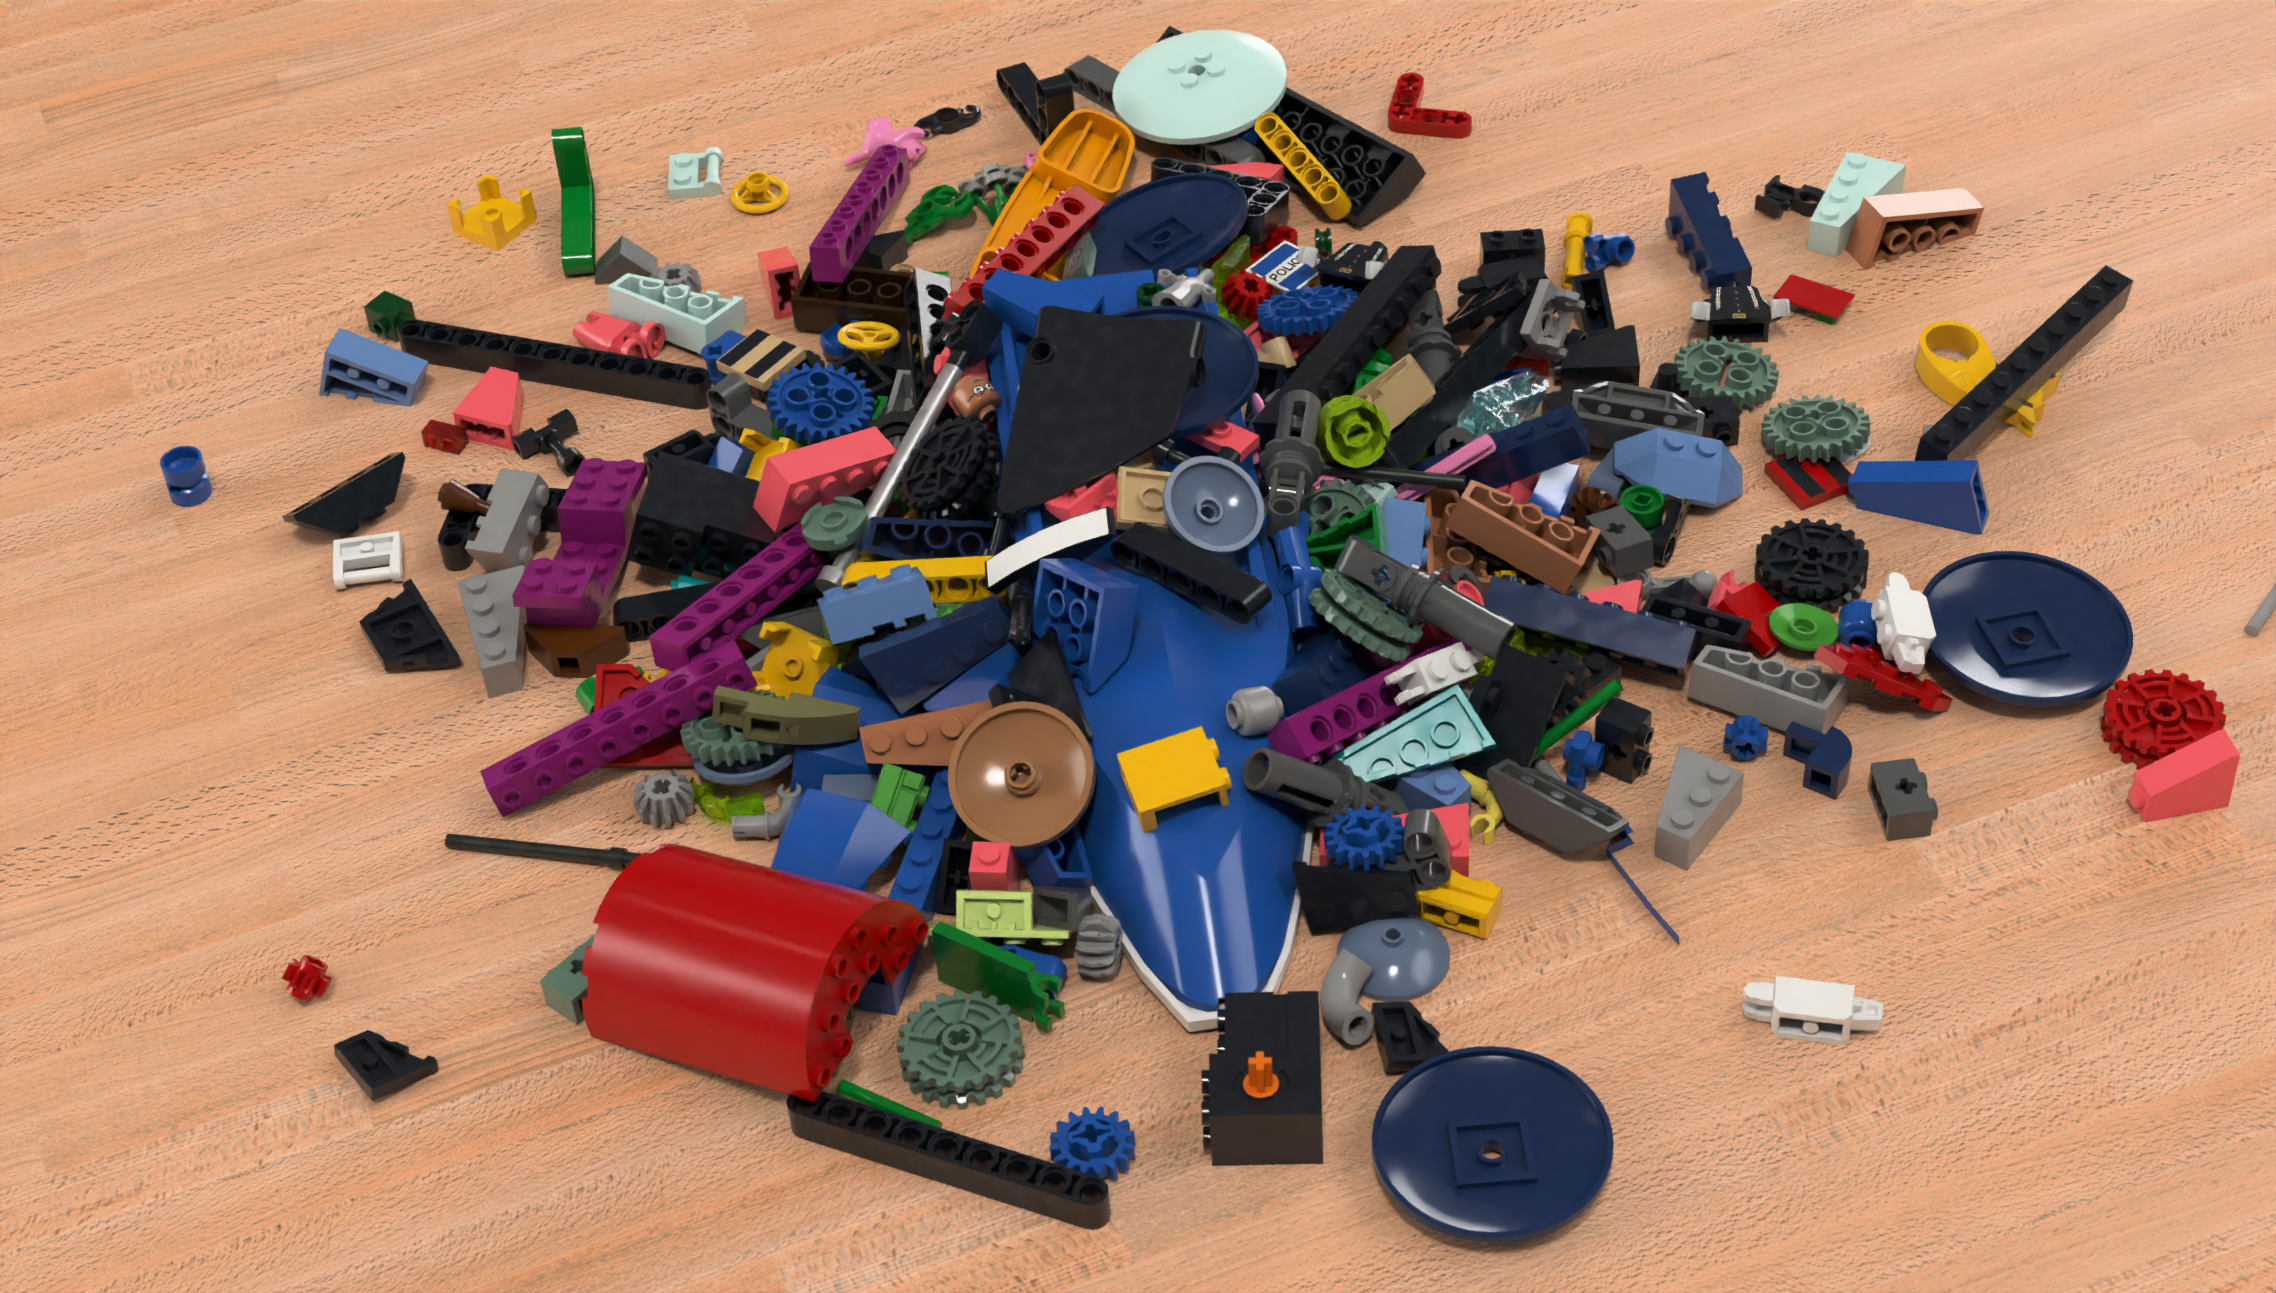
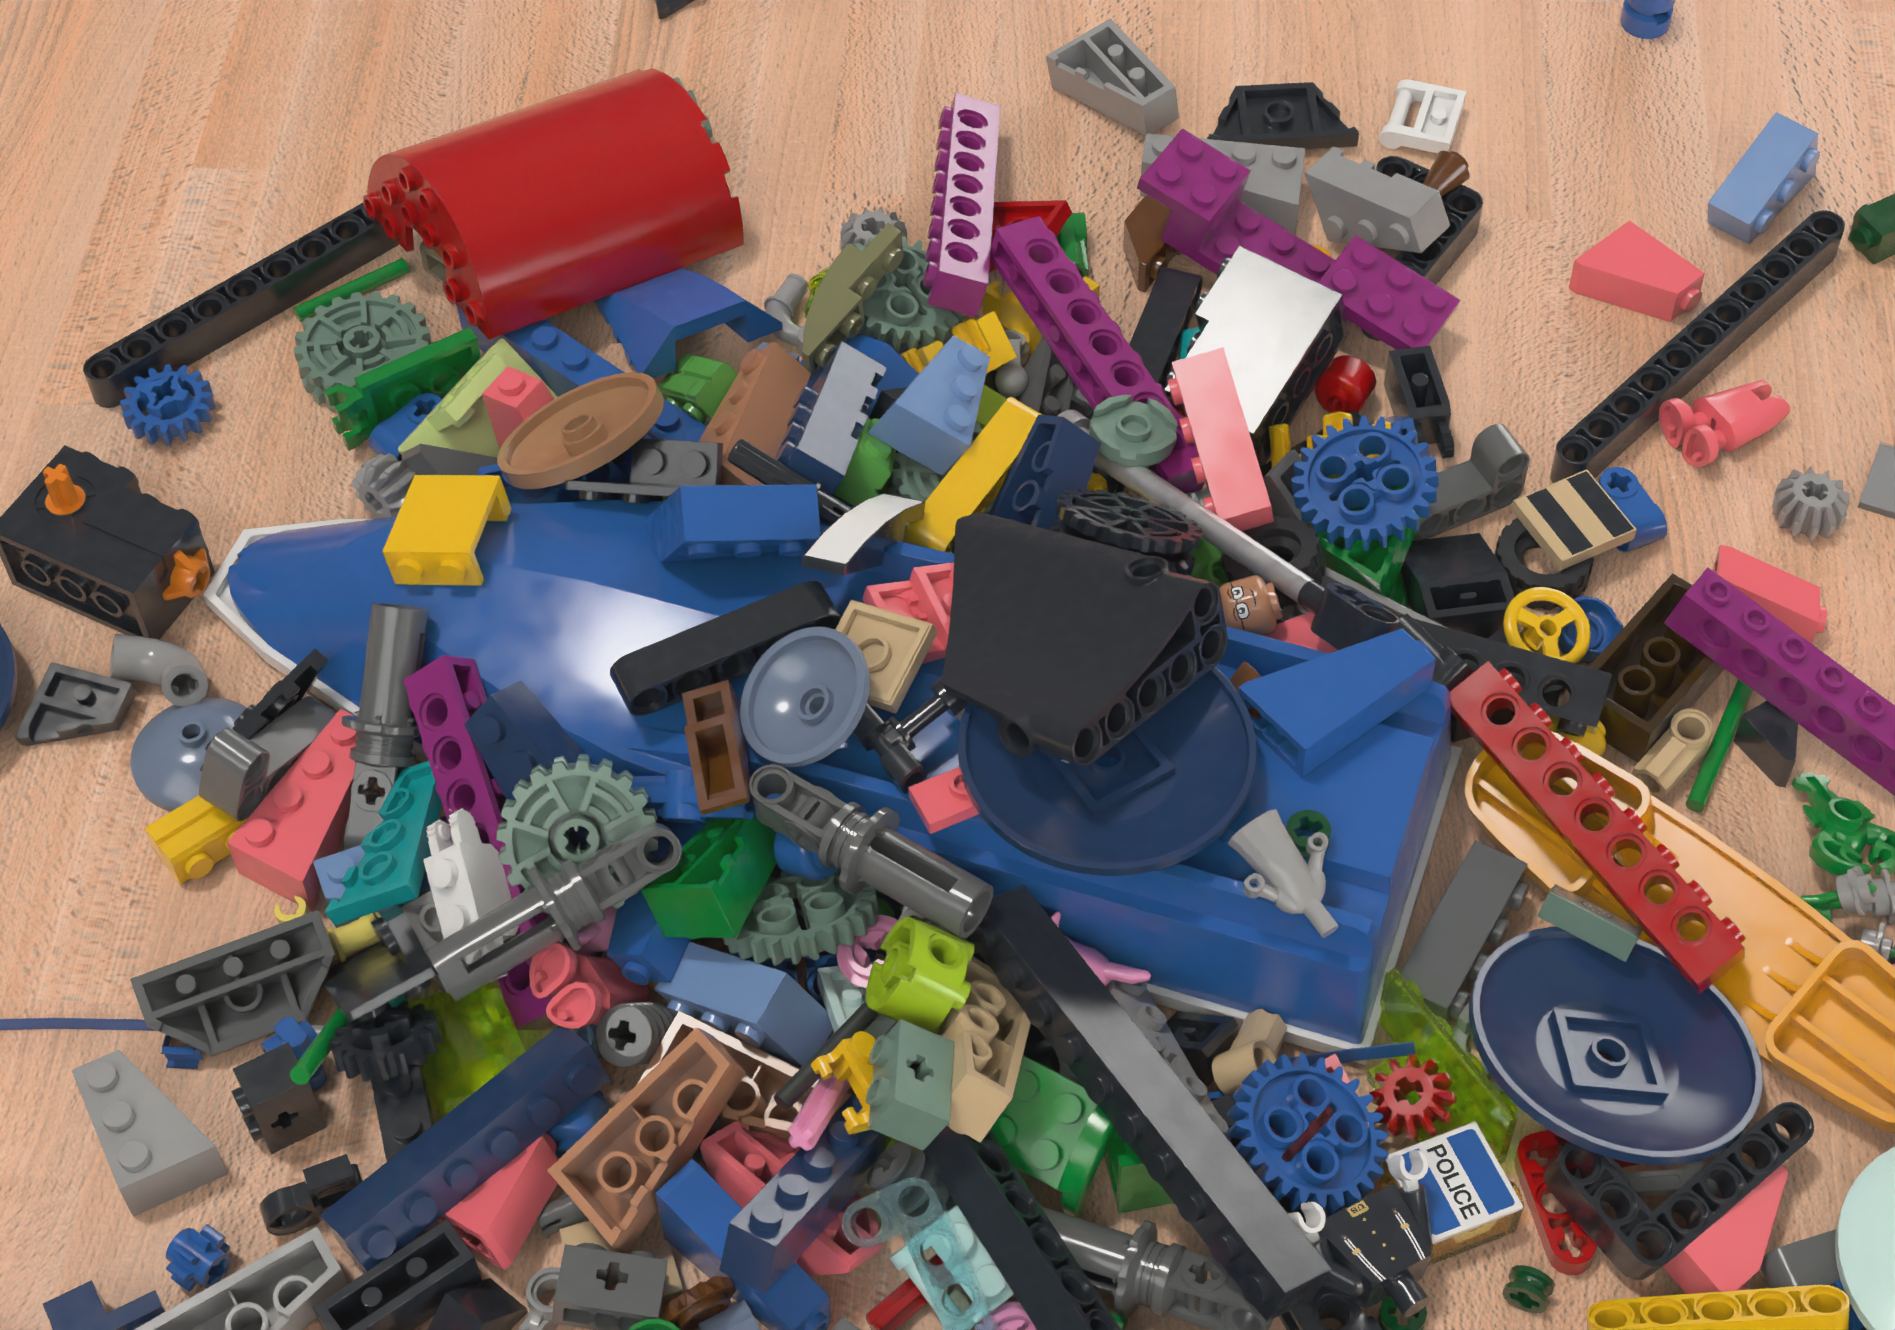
camera: 115 degrees right, 10 degrees up
(353, 499) = (1520, 107): black wedge -> none
(409, 722) = (1114, 79): none -> light grey wedge
(444, 437) = (1613, 220): clear red piece -> none
(551, 440) = (1556, 309): black bar -> none
(615, 857) = (827, 189): pearl dark grey bar -> none
(687, 316) = (1729, 480): light aqua wedge -> none
(1254, 710) = (489, 642): light grey head -> none
(1275, 540) = (716, 747): none -> reddish brown slope
(1364, 837) = (298, 726): blue gear -> none
(1428, 399) = (910, 1084): none -> sand green brick
(1430, 443) = (851, 1063): none -> yellow piece
(1653, 696) = (300, 1204): none -> black piece

